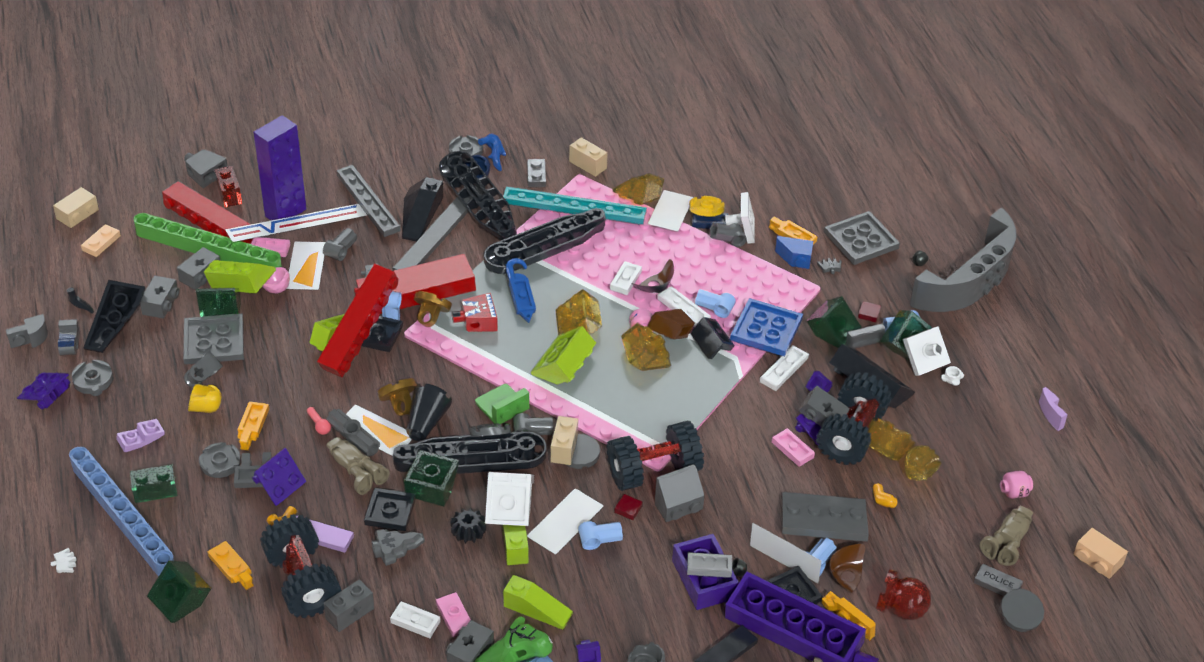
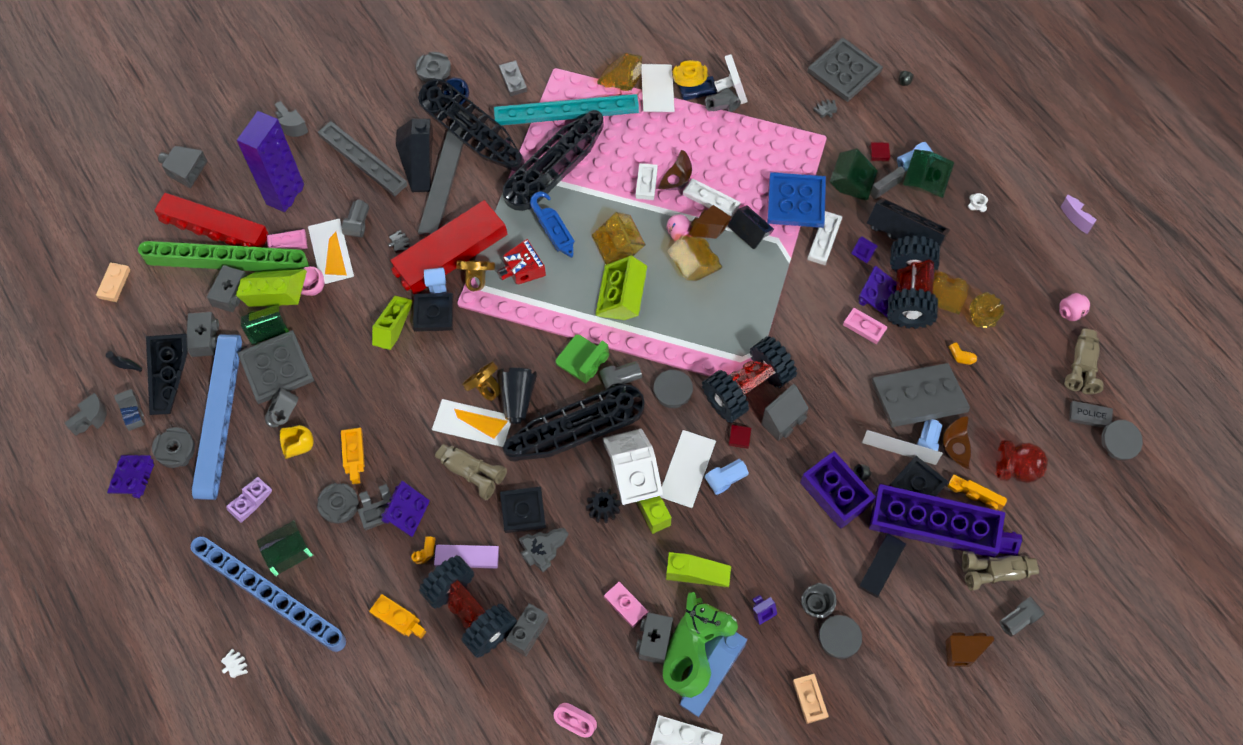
camera: 15 degrees left, 20 degrees up
(76, 207) = (72, 251): tan brick -> none
(141, 364) = (217, 418): none -> medium blue beam
(178, 590) = (360, 665): clear green slope -> none
(228, 186) = (217, 182): clear red brick -> none
(295, 222) = (301, 207): white sticker -> none
(315, 158) = (292, 122): none -> dark grey brick
(321, 425) = (422, 435): coral bar -> none
(358, 320) = (414, 311): red brick -> none
(360, 438) = (444, 429): dark grey piece -> none
(415, 619) = (593, 623): white plate -> none
(431, 477) = (550, 465): clear green slope -> none
(490, 429) = (584, 394): dark grey tile -> none
(497, 149) = (465, 61): blue piece -> none
(564, 440) = (659, 386): tan brick -> none
(588, 156) = (557, 47): tan brick -> none
(709, 565) = (845, 489): light grey plate -> none
(720, 304) = (745, 185): light blue piece -> none
(791, 230) = (780, 82): light orange hinge -> none
(794, 251) = (791, 104): blue slope -> none
(820, 405) = (883, 280): dark grey brick -> none
(926, 351) = (949, 184): white tile -> none
(974, 277) = (939, 117): dark grey slope -> none
(1100, 553) = (1169, 358): light nougat brick -> none

